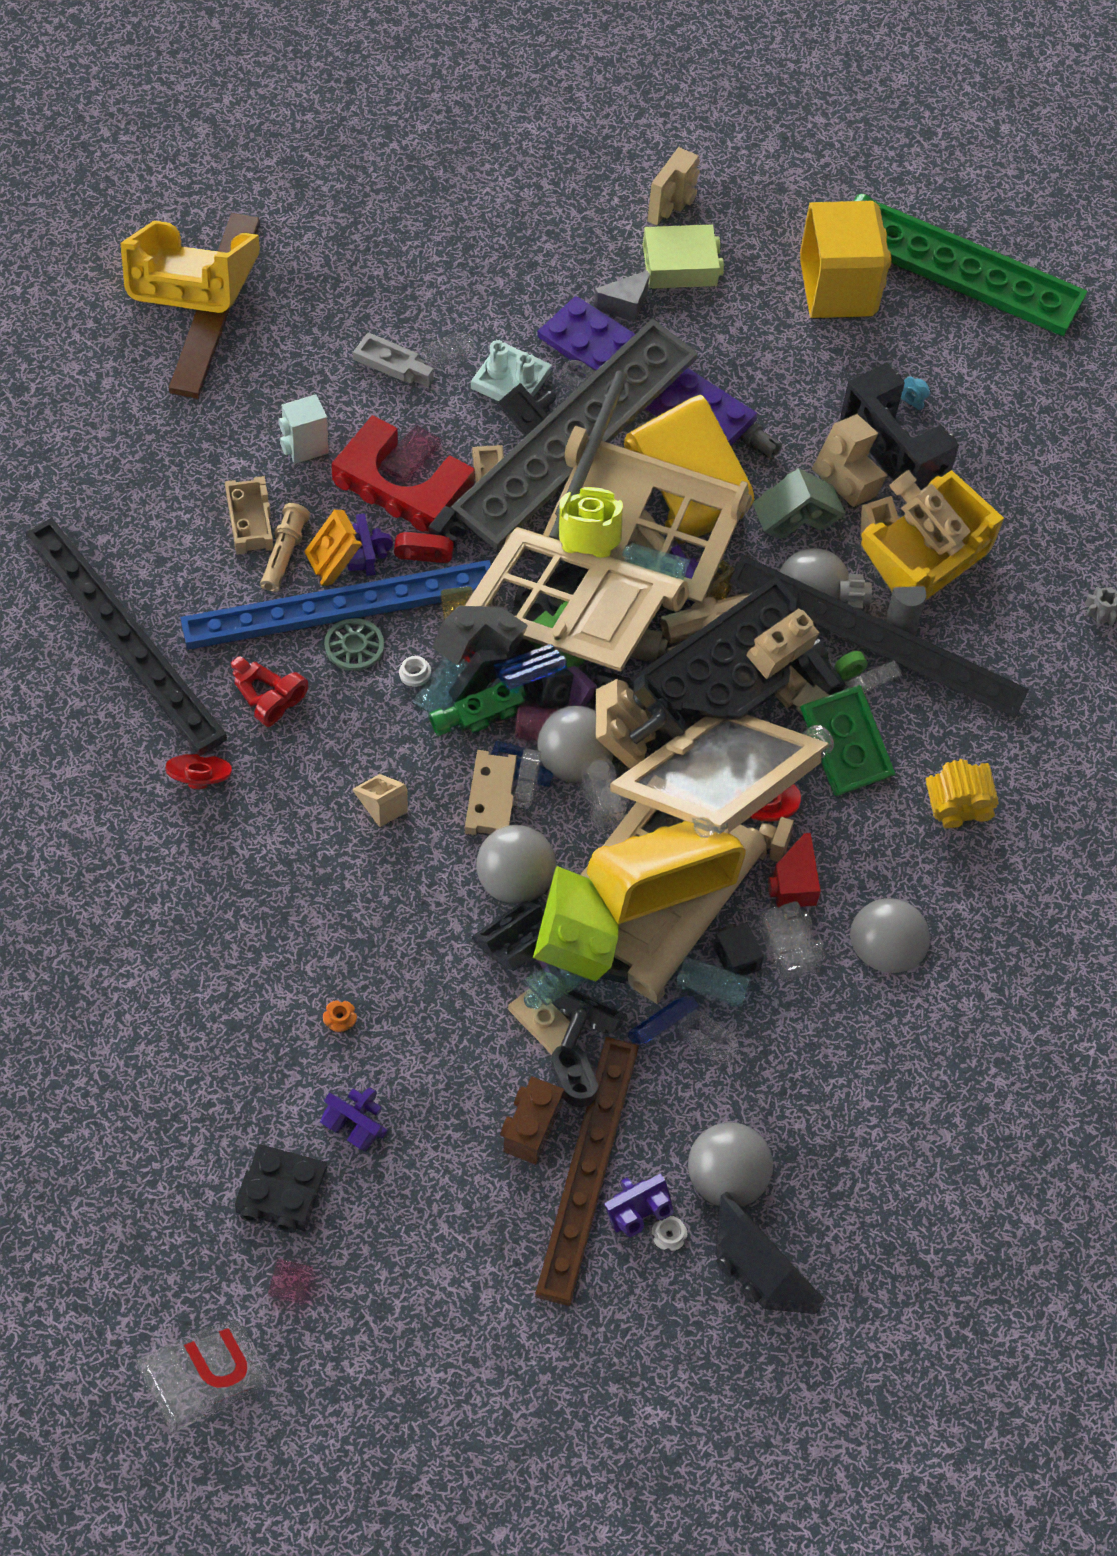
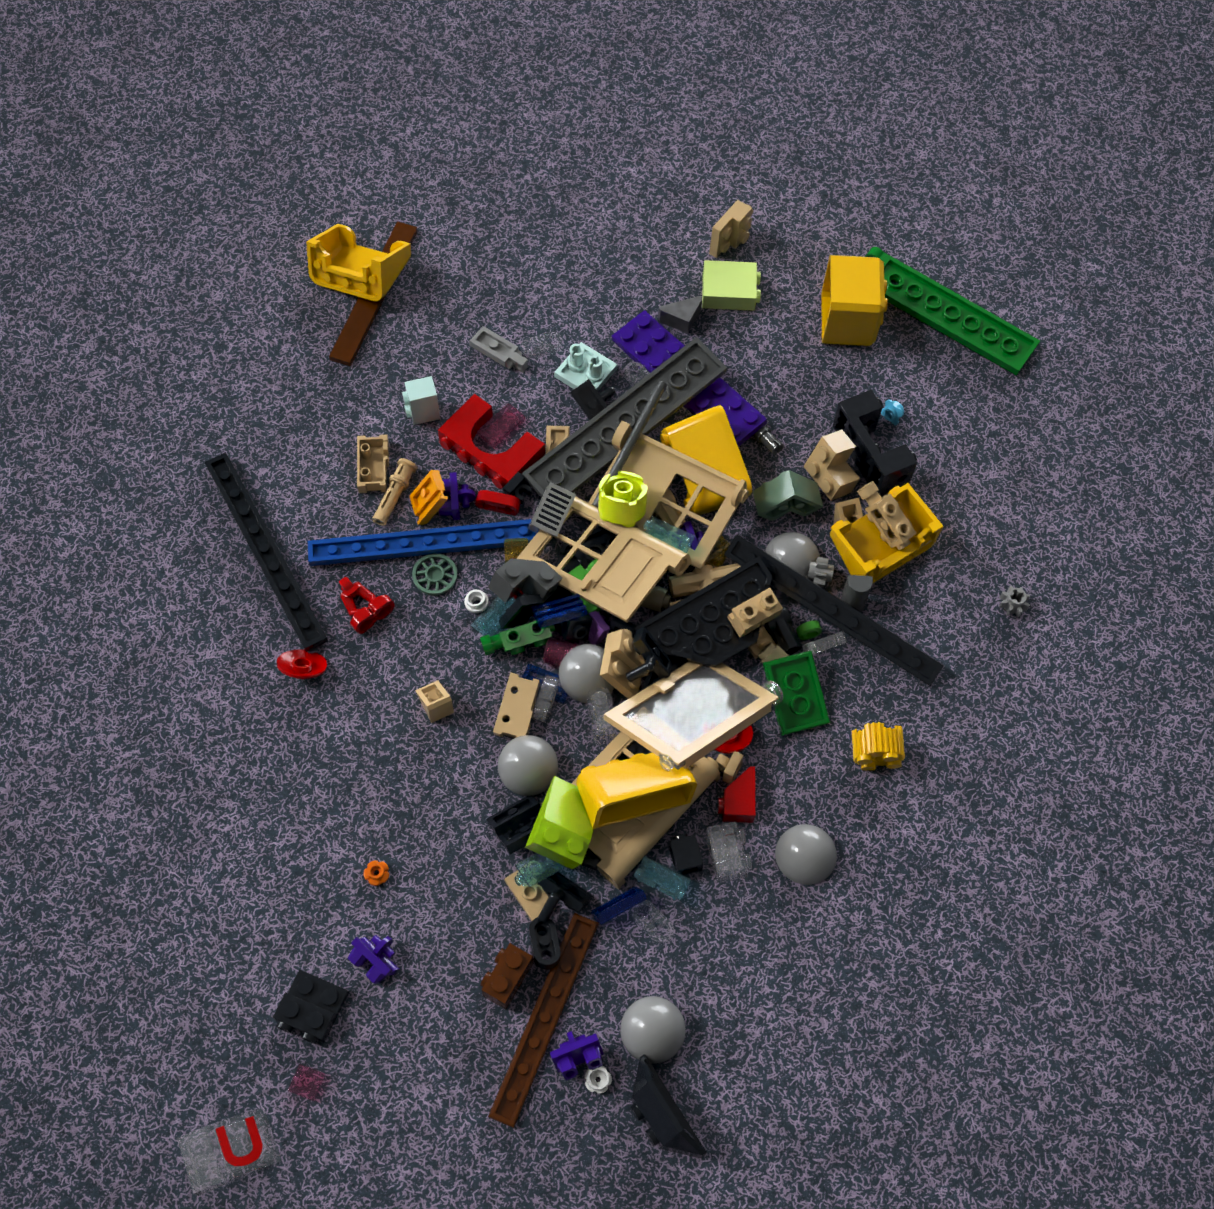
camera: 10 degrees right, 5 degrees up
(498, 546) = (552, 510): none -> light grey panel

